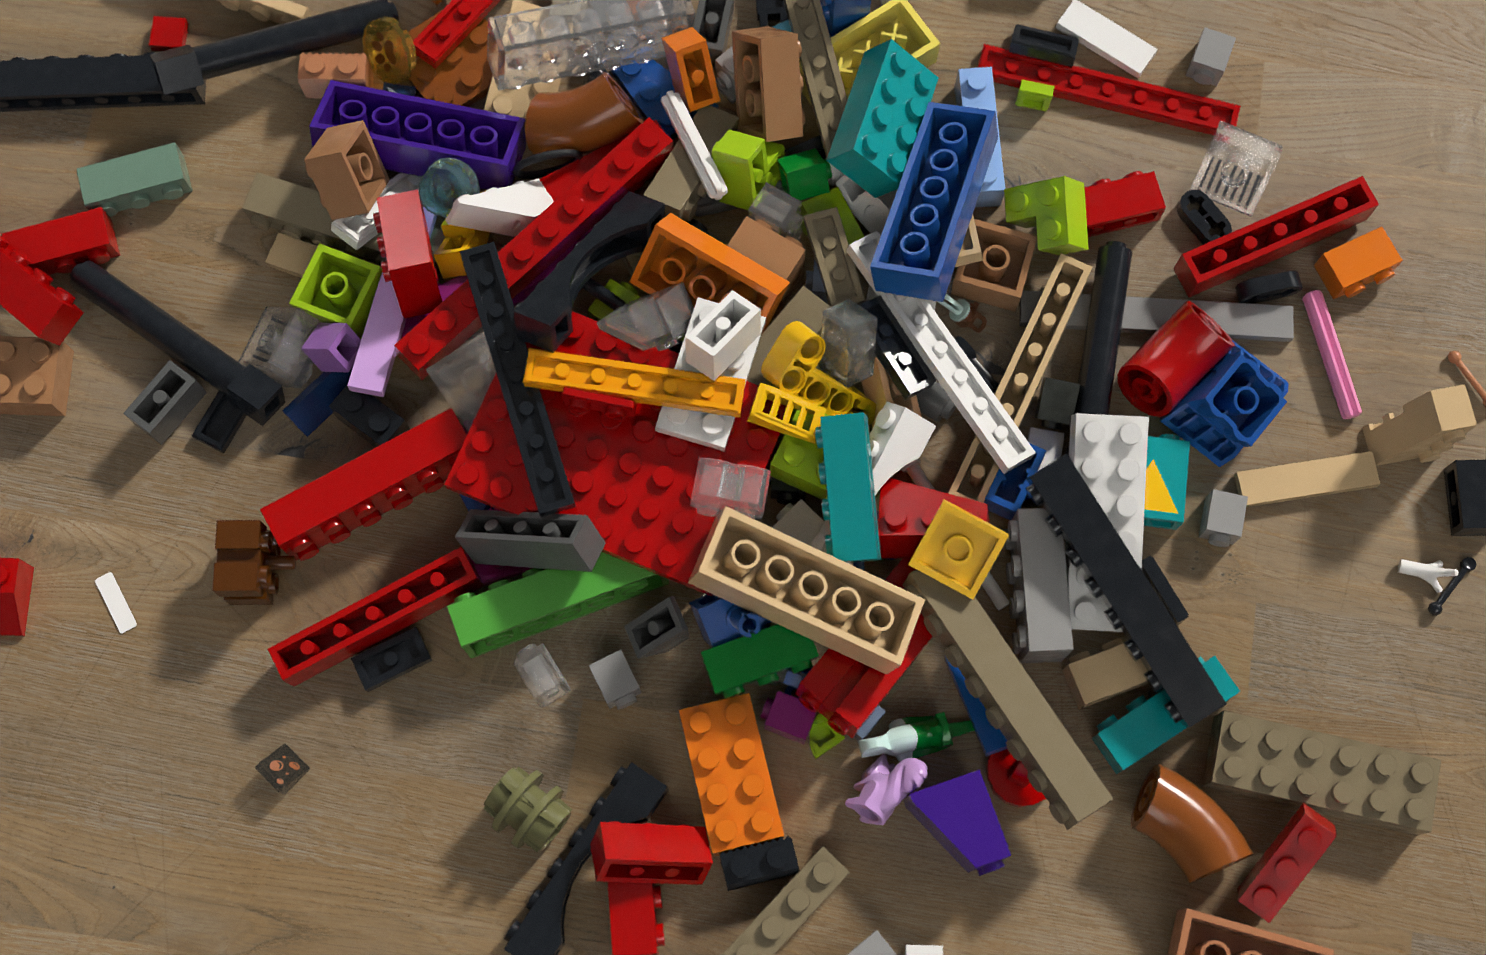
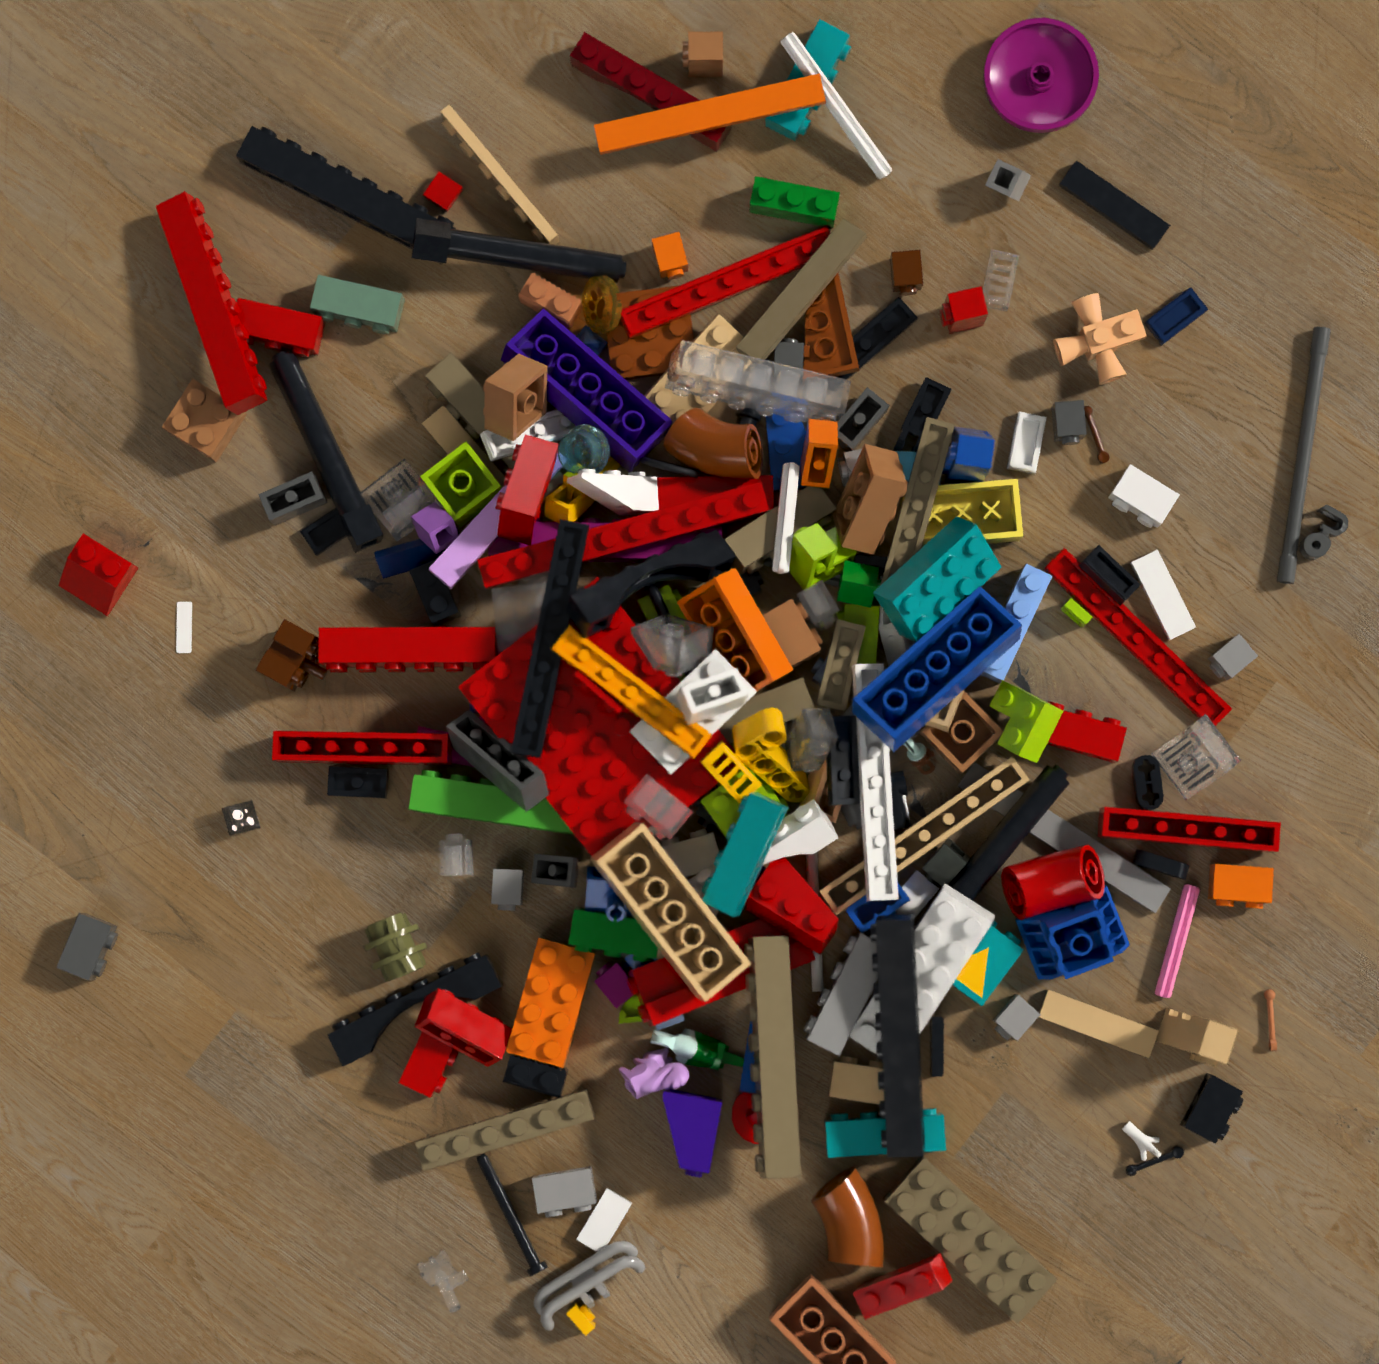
camera: 35 degrees right, 10 degrees up
(958, 549) = (795, 942): yellow plate -> none

